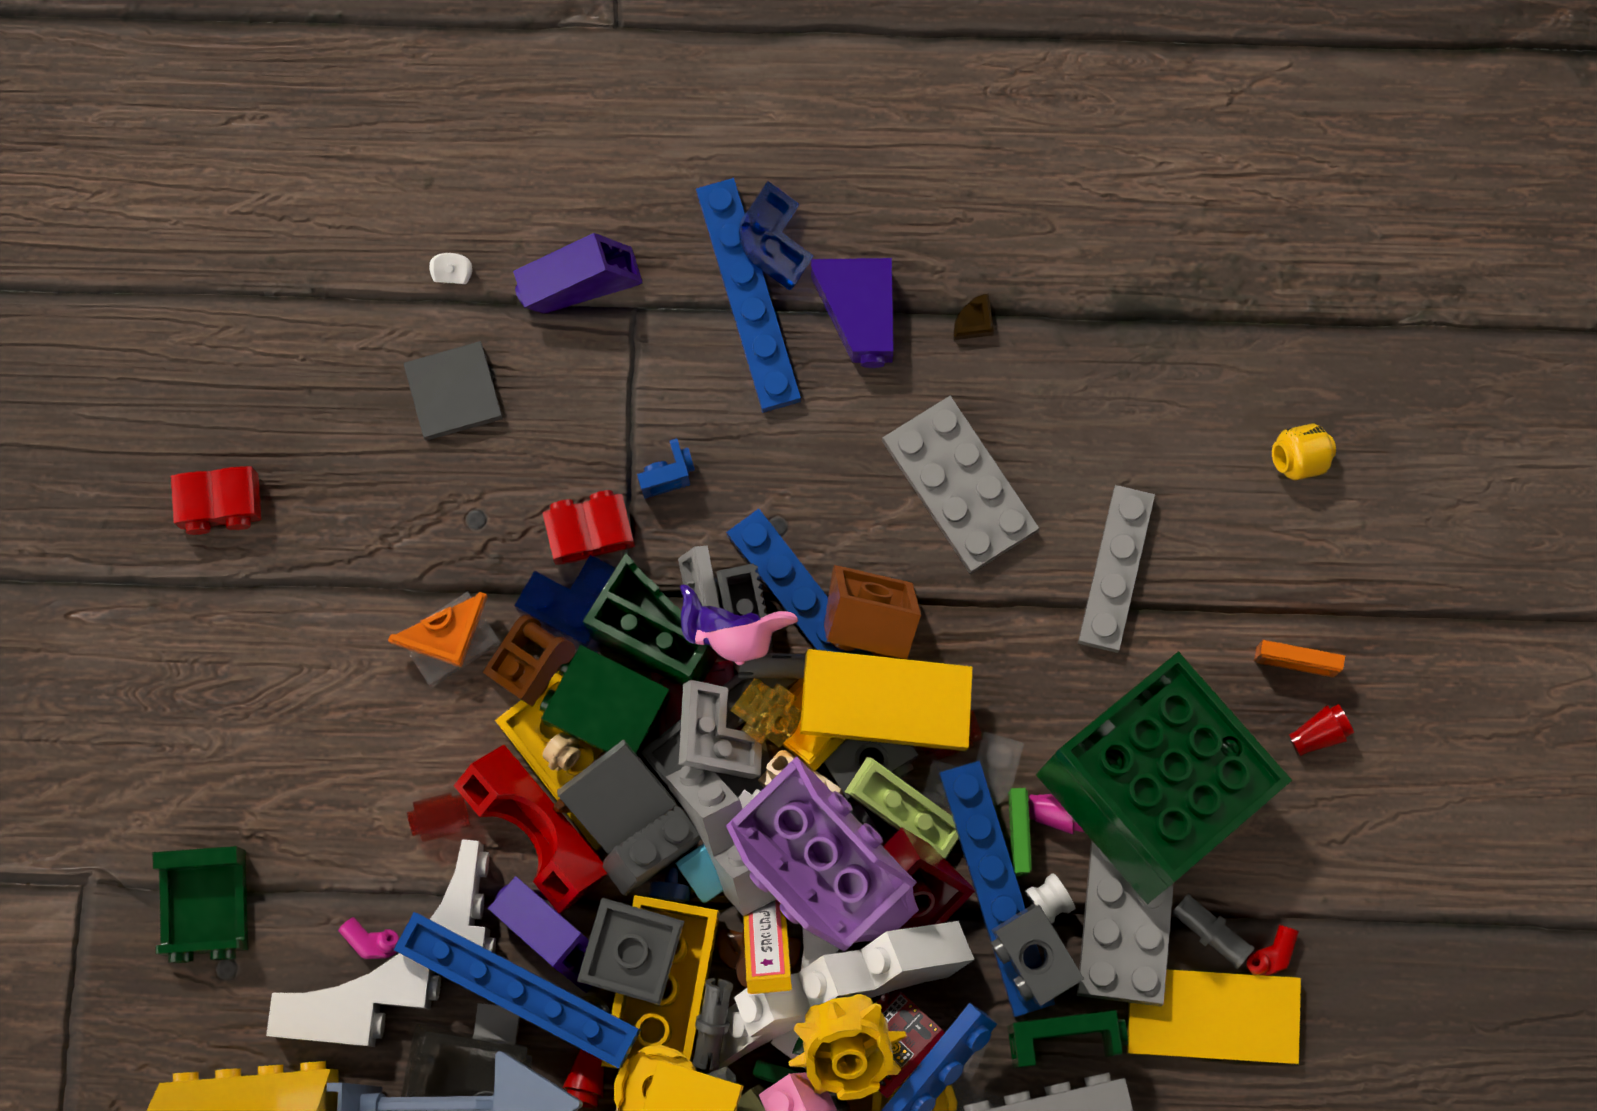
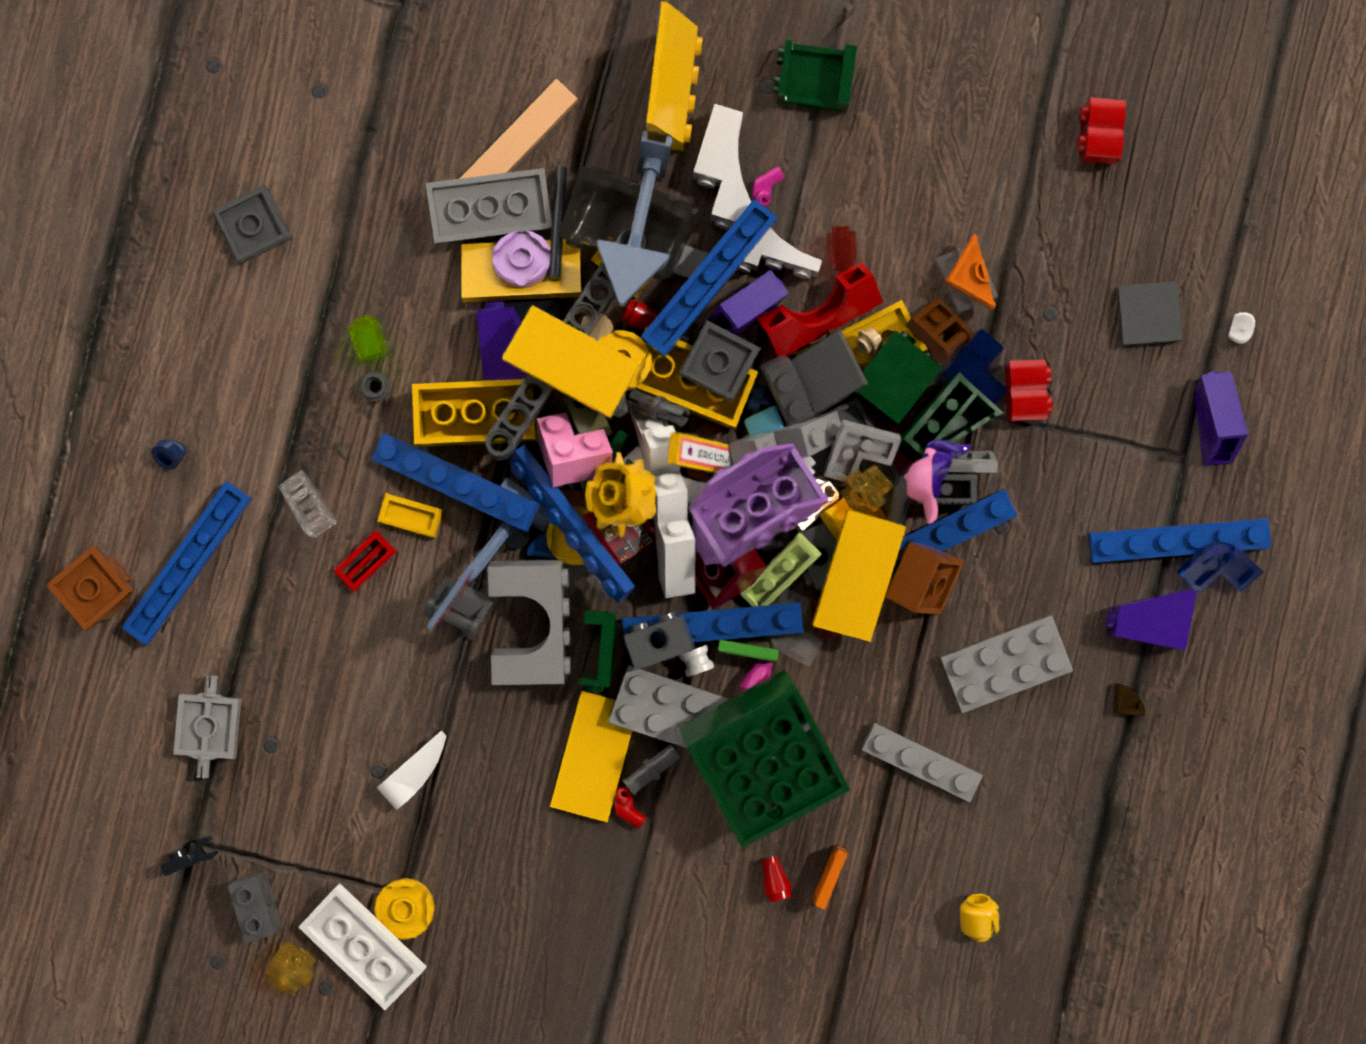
camera: 100 degrees right, 10 degrees up
(662, 478) = (1053, 451): blue bracket -> none

